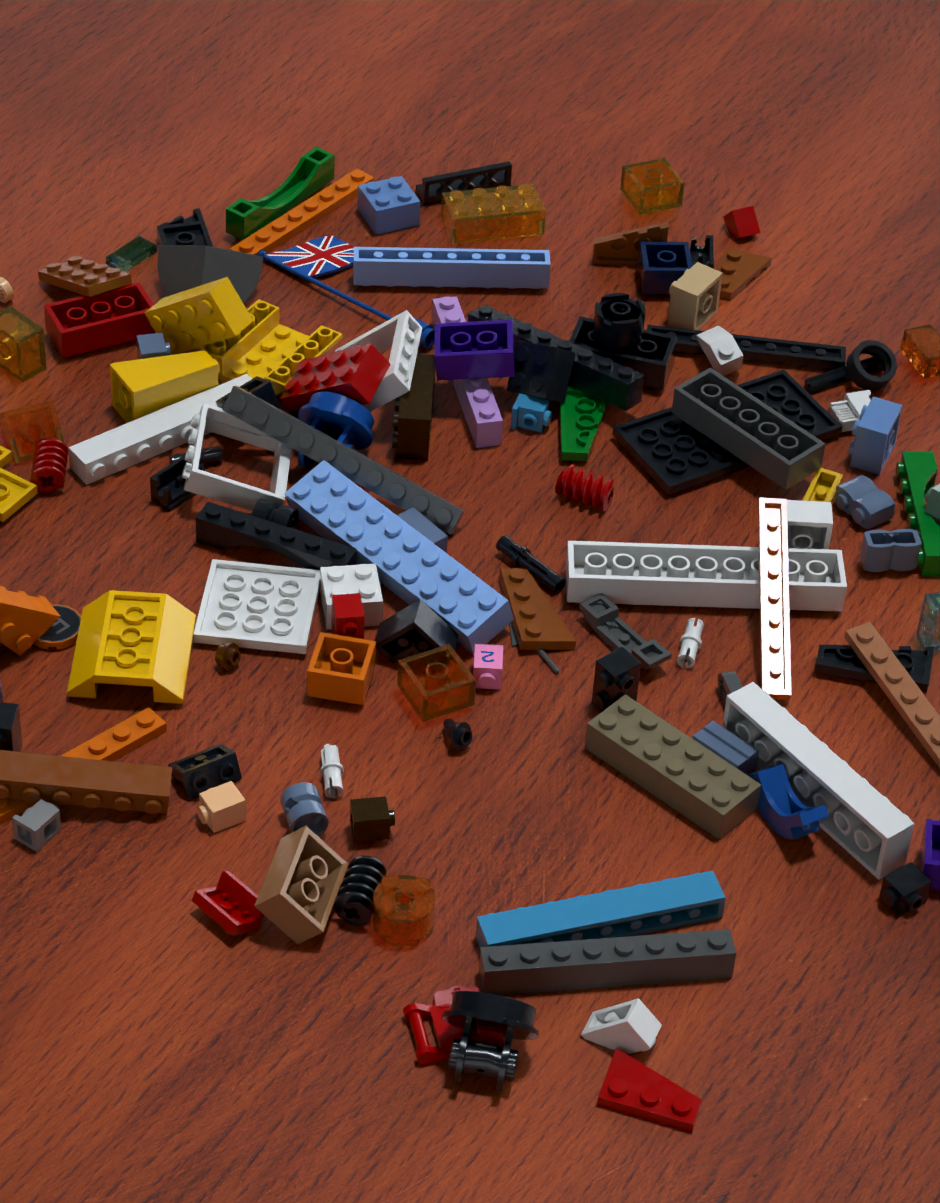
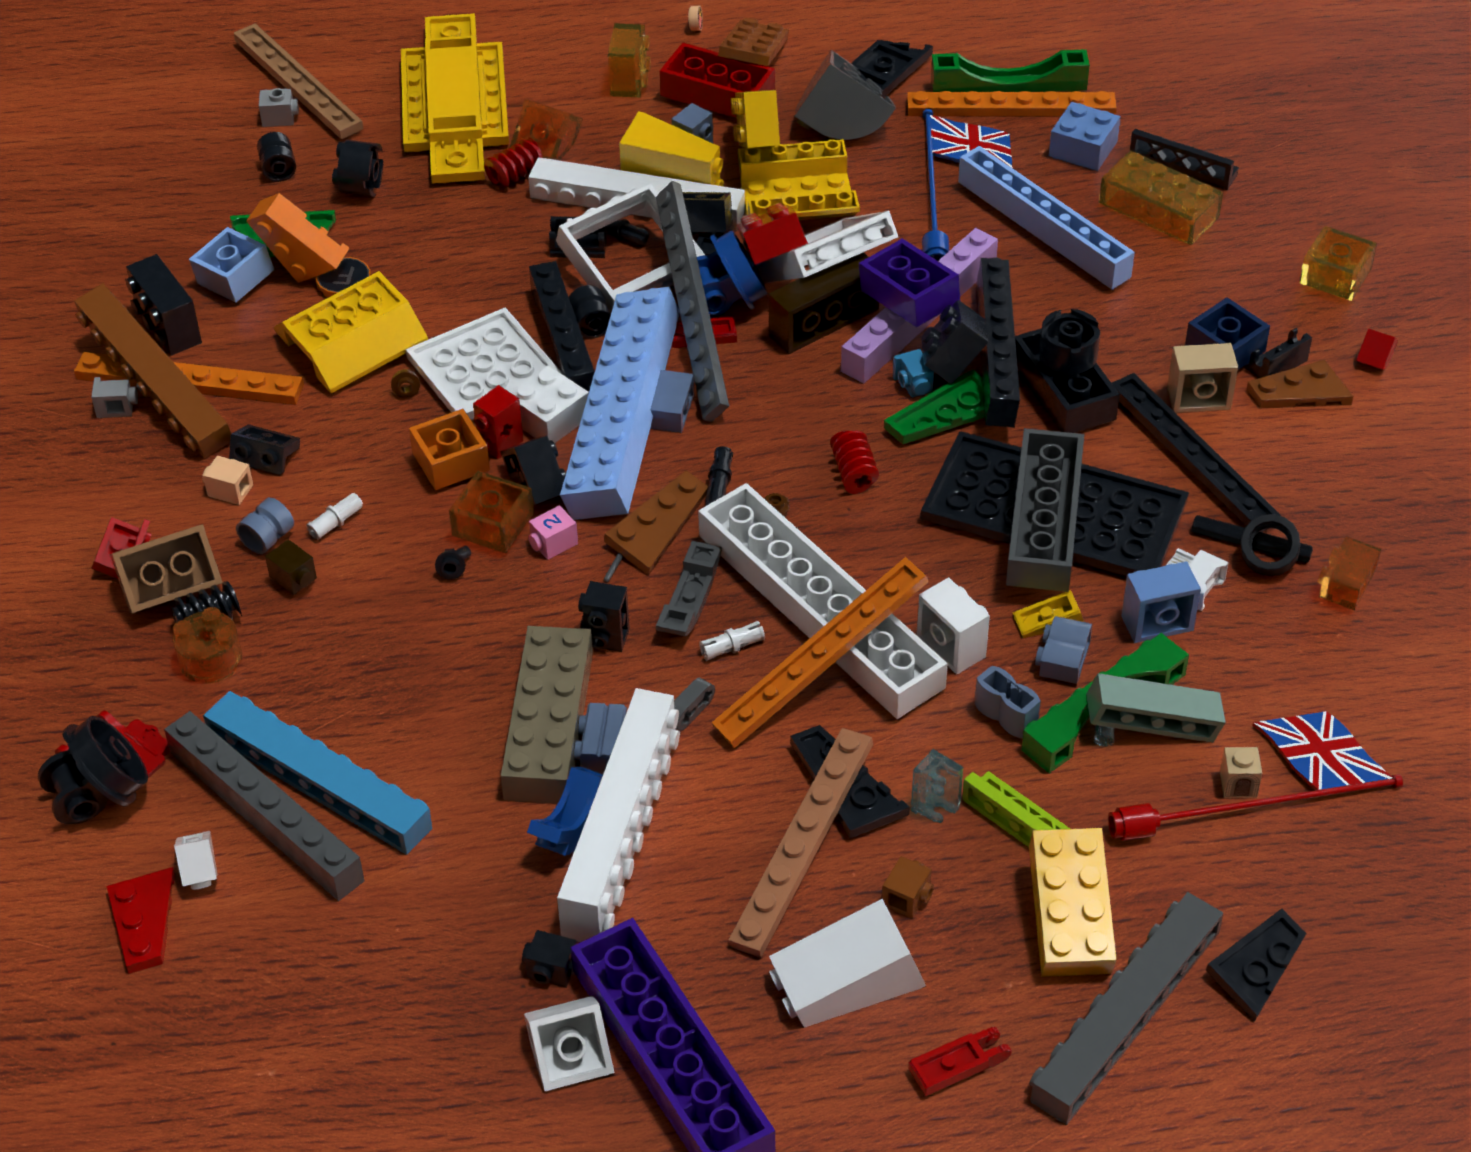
camera: 55 degrees right, 5 degrees up
(131, 254) = (845, 48): clear green tile -> none
(624, 246) = (1211, 289): dark orange wing -> none
(721, 350) = (1151, 436): white slope -> none

